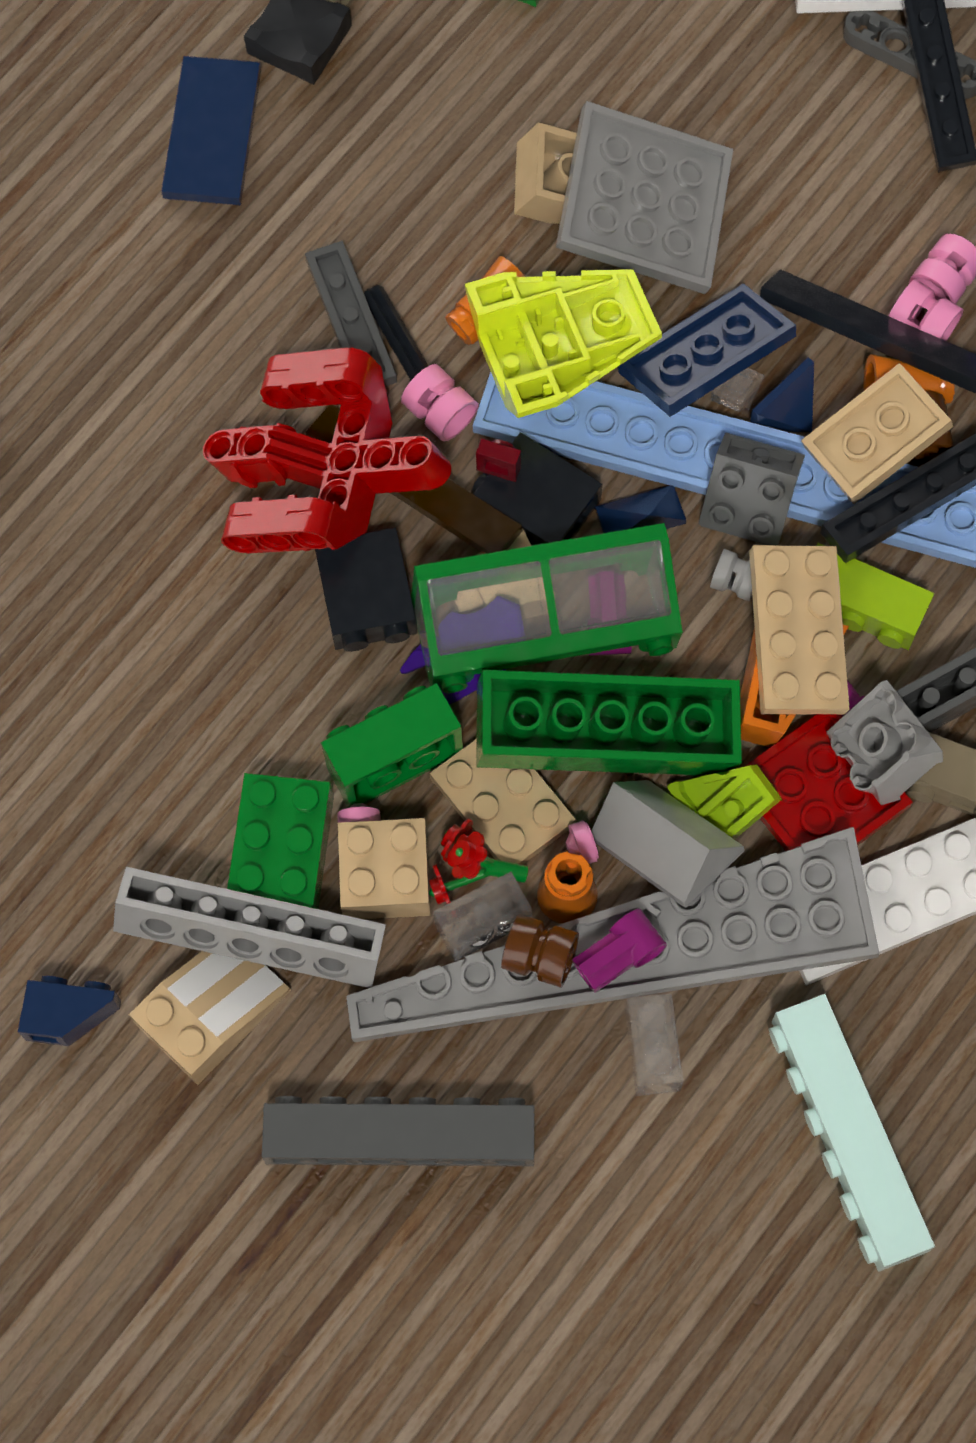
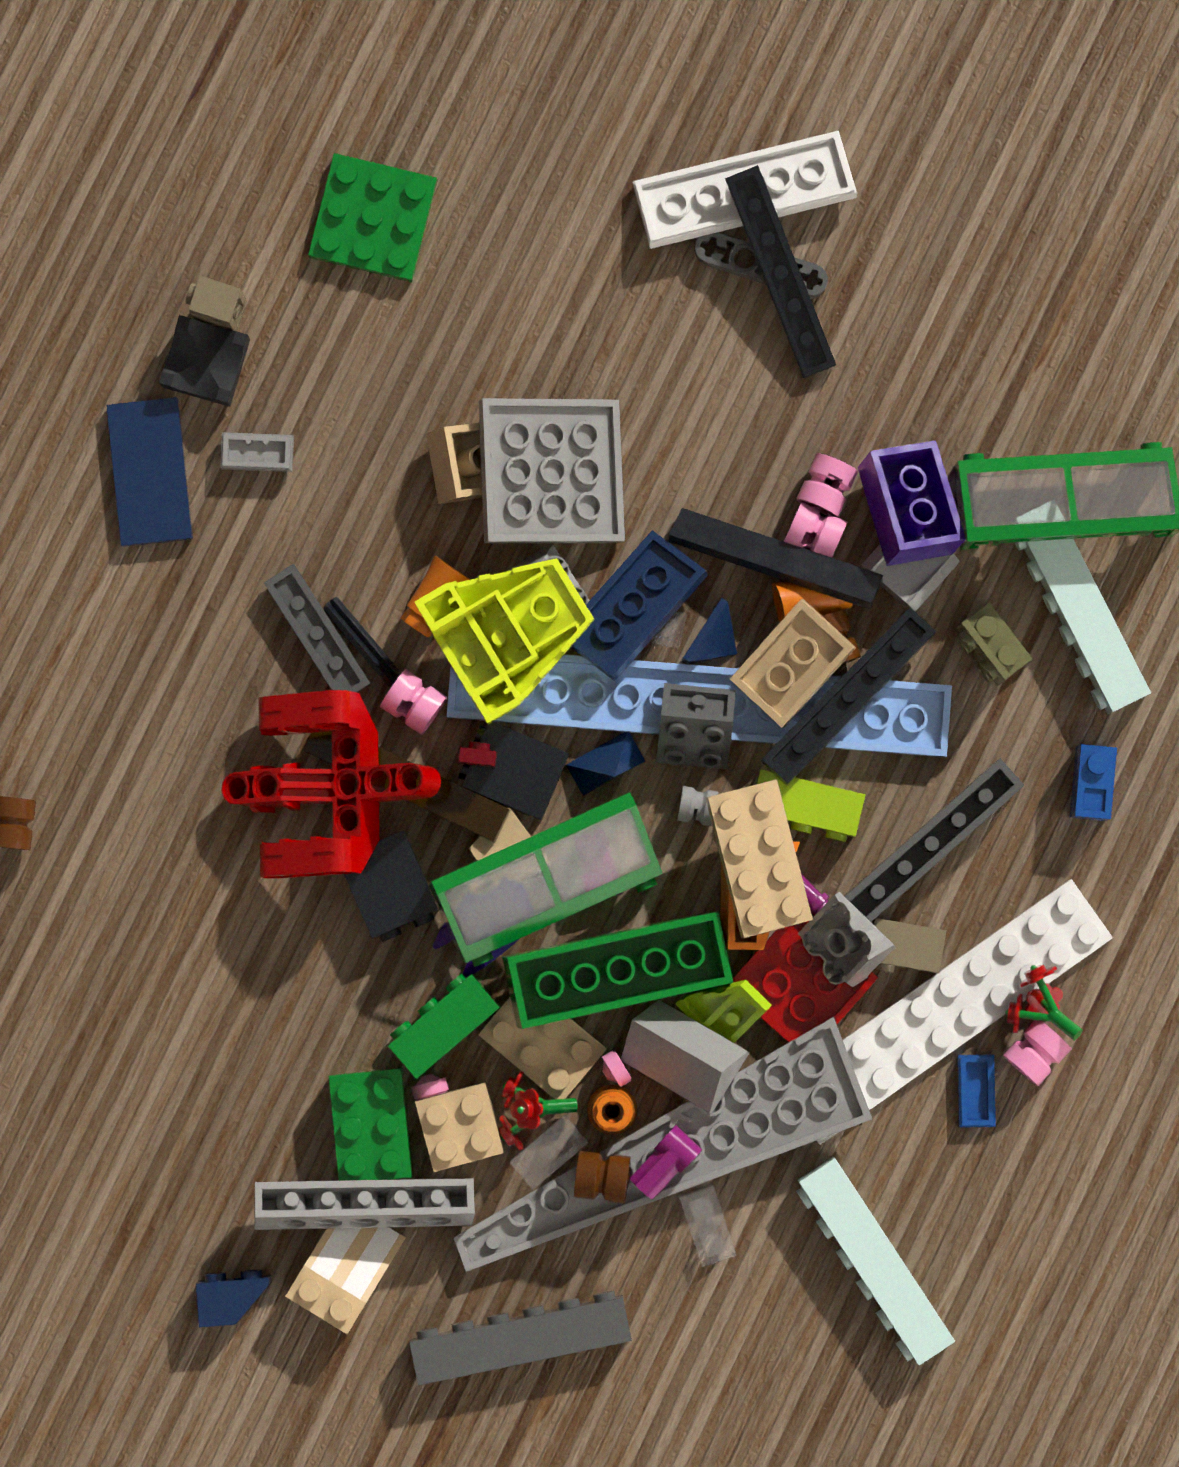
camera: 15 degrees left, 15 degrees up
(331, 129) = (257, 452): none -> light grey plate

